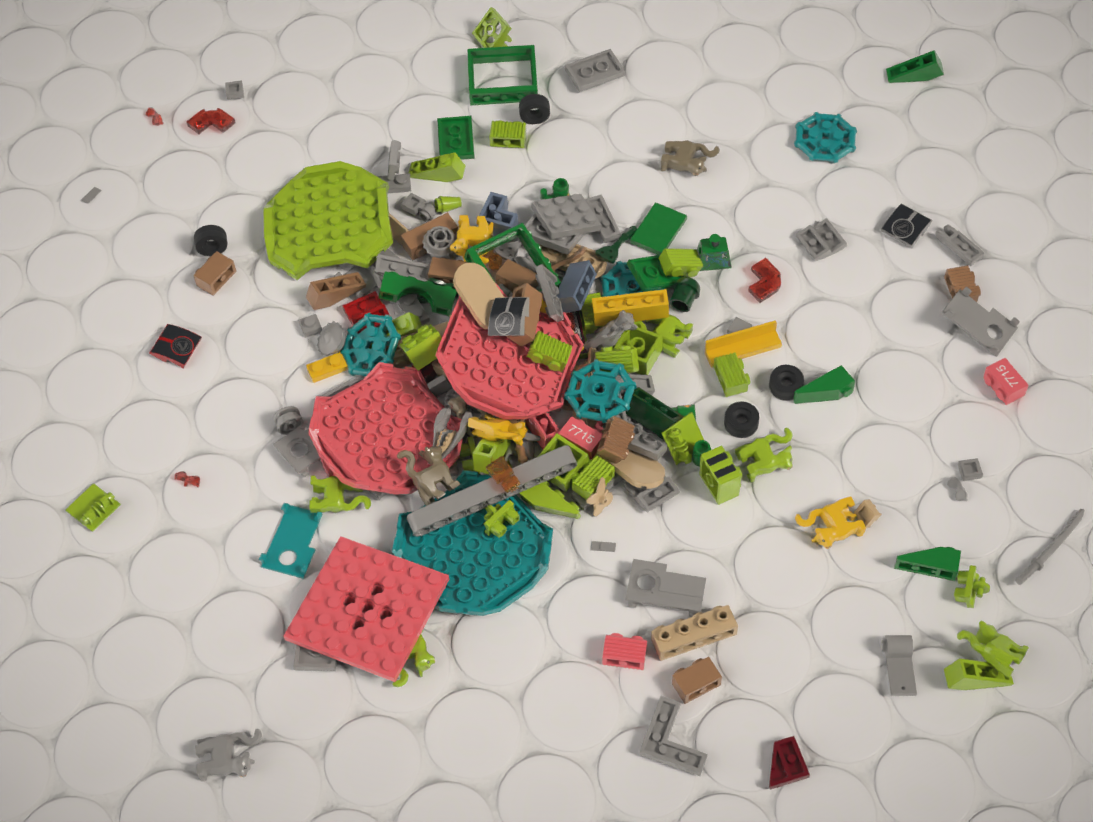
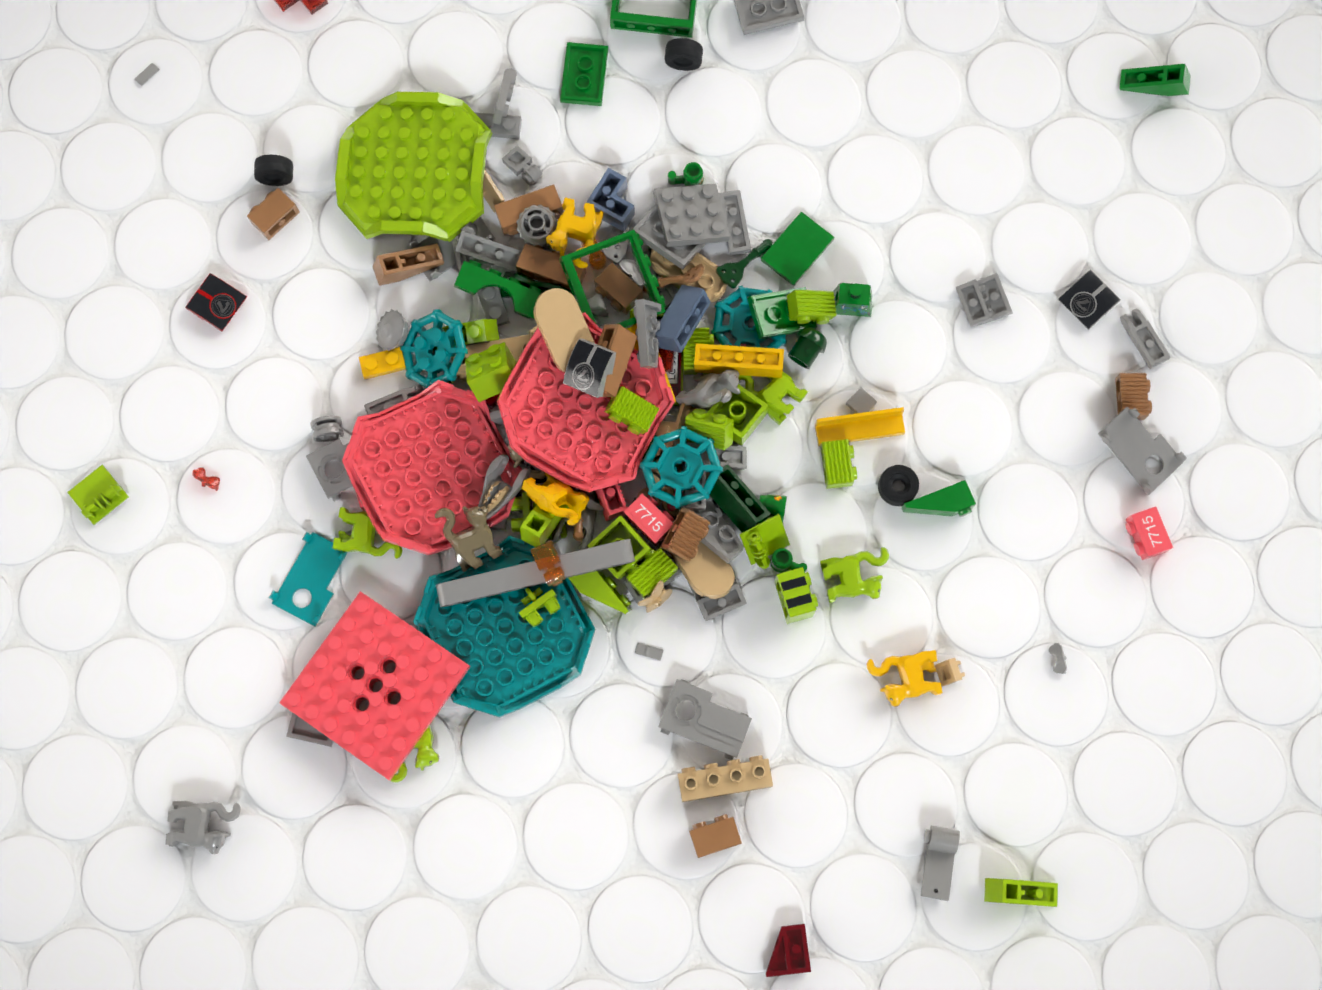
camera: 10 degrees right, 20 degrees up
(310, 325) = (372, 303): light grey plate -> none
(367, 304) = (439, 295): red slope -> none
(440, 168) = (554, 116): lime slope -> none
(447, 203) = (557, 167): lime cone -> none
(507, 134) = (646, 82): lime brick -> none
(624, 651) = (644, 787): coral brick -> none
(659, 748) = (656, 904): light grey plate -> none
(683, 159) = (850, 149): dark tan animal -> none
(737, 429) = (841, 512): black tyre -> none
(769, 280) = (911, 344): clear red plate -> none
(825, 129) = (1029, 146): teal plate -> none
(934, 562) = (1014, 748): green slope -> none
(970, 469) = (1079, 636): light grey tile -> none
(973, 585) = (1043, 774): lime hips -> none
(995, 647) = (1050, 869): lime animal -> none
(1037, 563) = (1122, 769): light grey sword -> none

